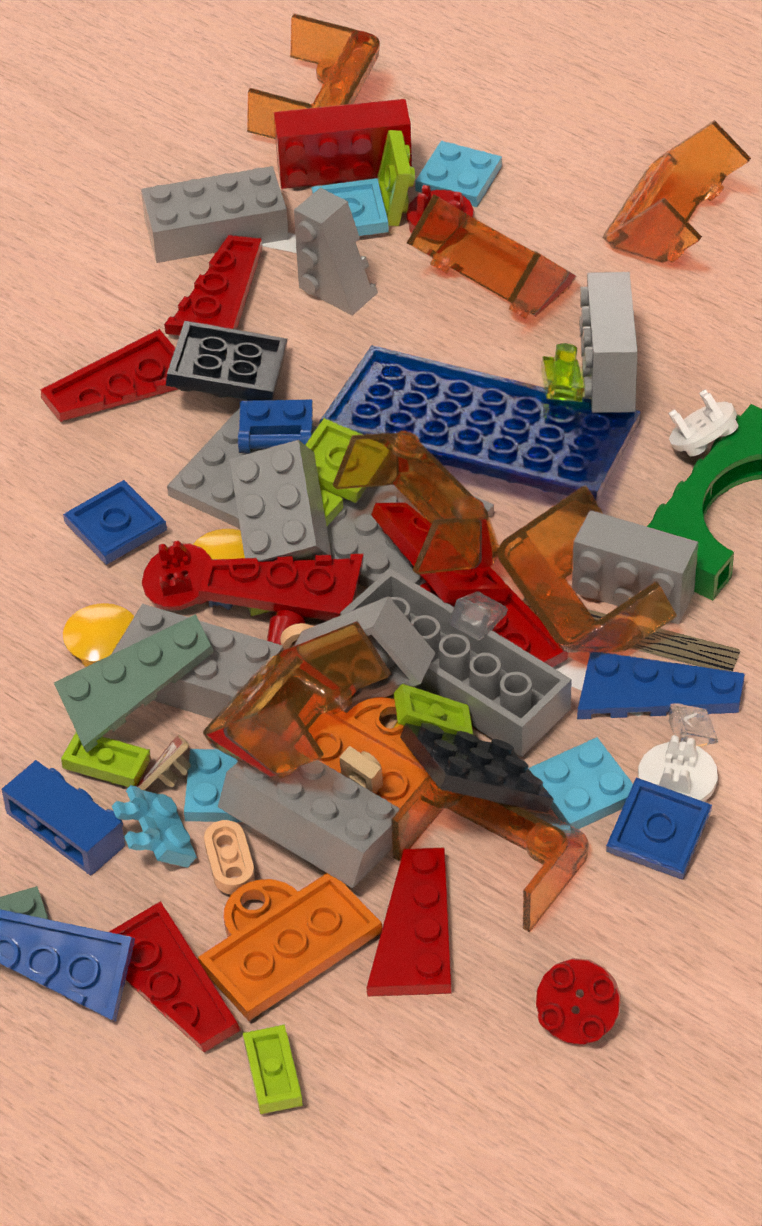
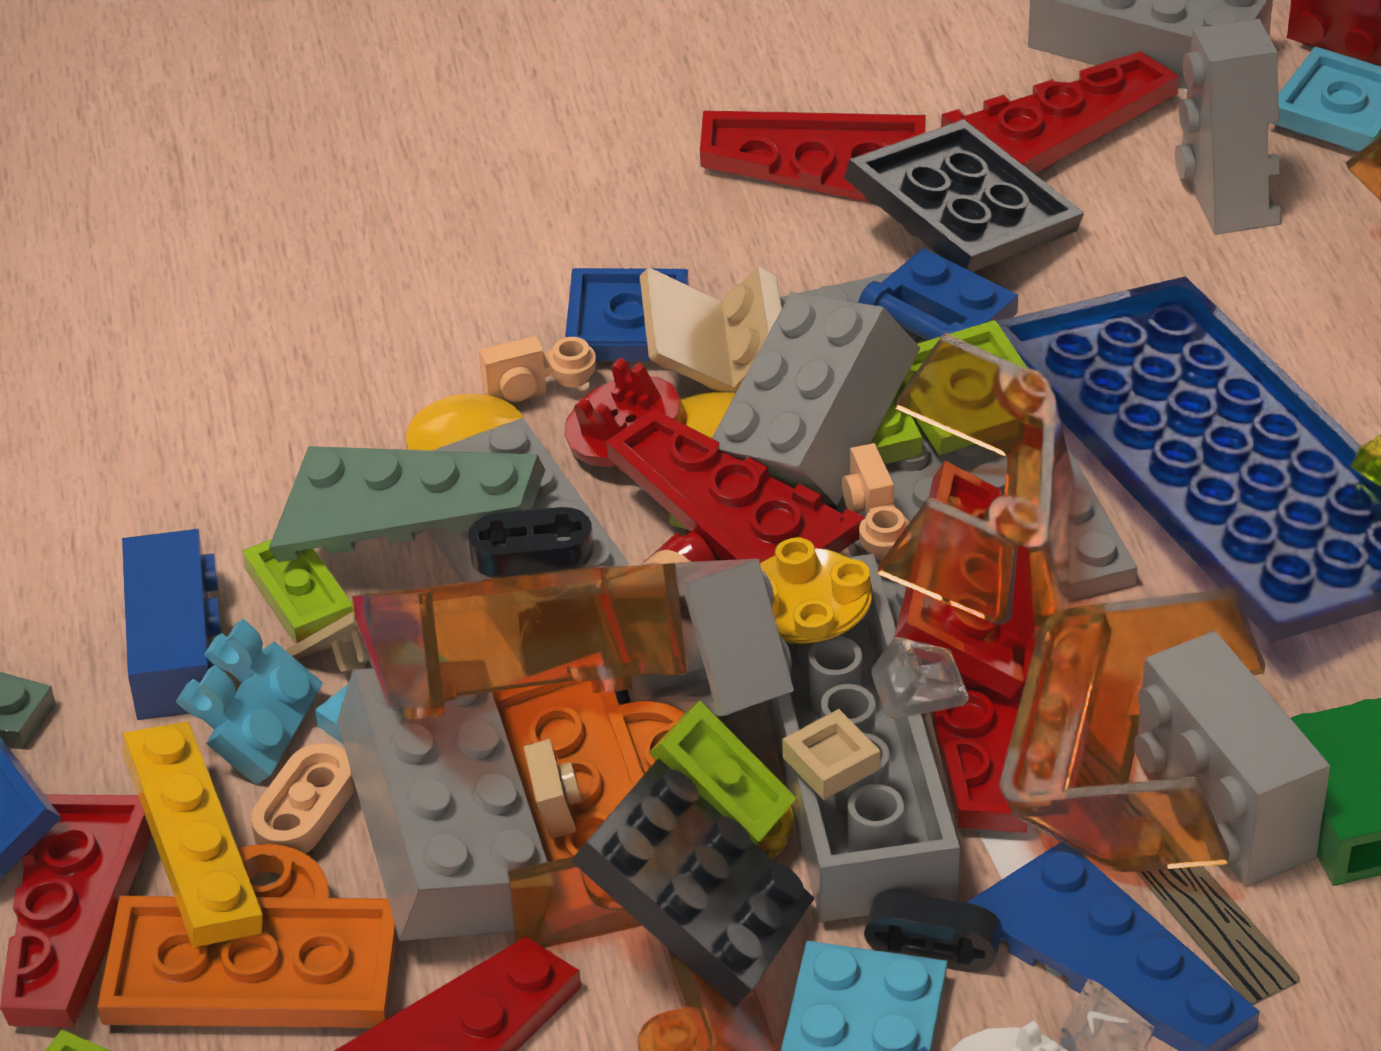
camera: 40 degrees right, 5 degrees down
(95, 582) = (520, 367): none -> light nougat plate
(185, 503) = (705, 336): none -> tan bracket
(204, 903) = (191, 834): none -> yellow plate
(232, 663) = (530, 541): none -> black beam
(352, 538) = (871, 494): none -> light nougat plate
(400, 588) = (816, 591): none -> yellow dish
(481, 671) = (831, 754): none -> tan plate
(578, 727) = (934, 929): none -> black beam

